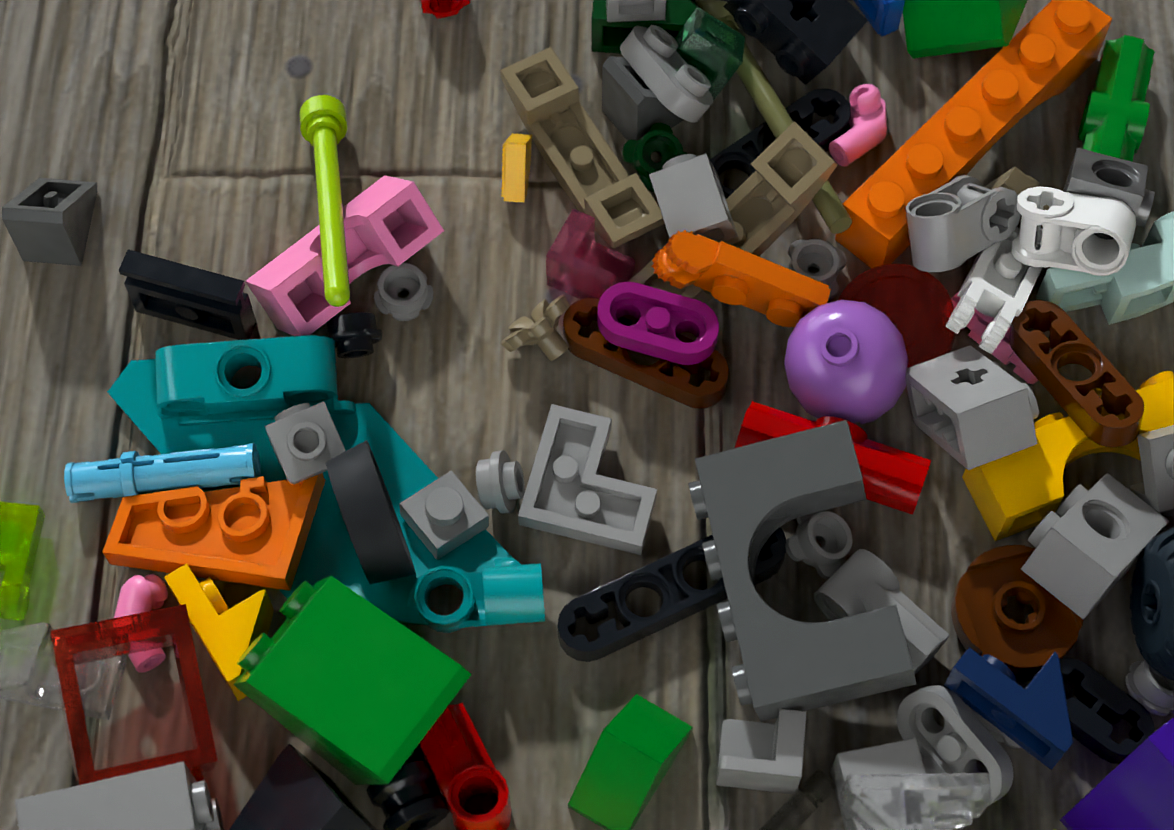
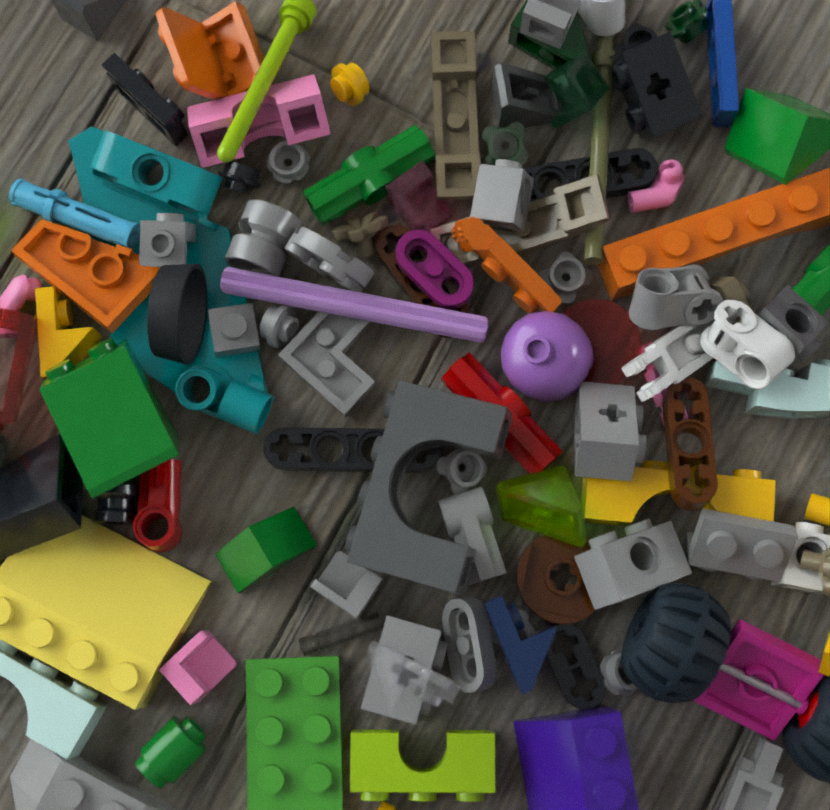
camera: 30 degrees right, 15 degrees up
(250, 200) = (214, 55): none -> orange bracket
(425, 391) = (263, 238): none -> light grey wheel
(431, 169) = (349, 83): none -> yellow plate
(510, 262) = (367, 174): none -> green piece
(516, 167) = (408, 106): yellow tile -> none
(518, 367) = (328, 259): none -> light grey plate
(580, 409) = (354, 304): none -> lavender axle
(666, 74) = (537, 92): light grey plate -> none
(949, 530) = (544, 505): none -> clear neon green slope

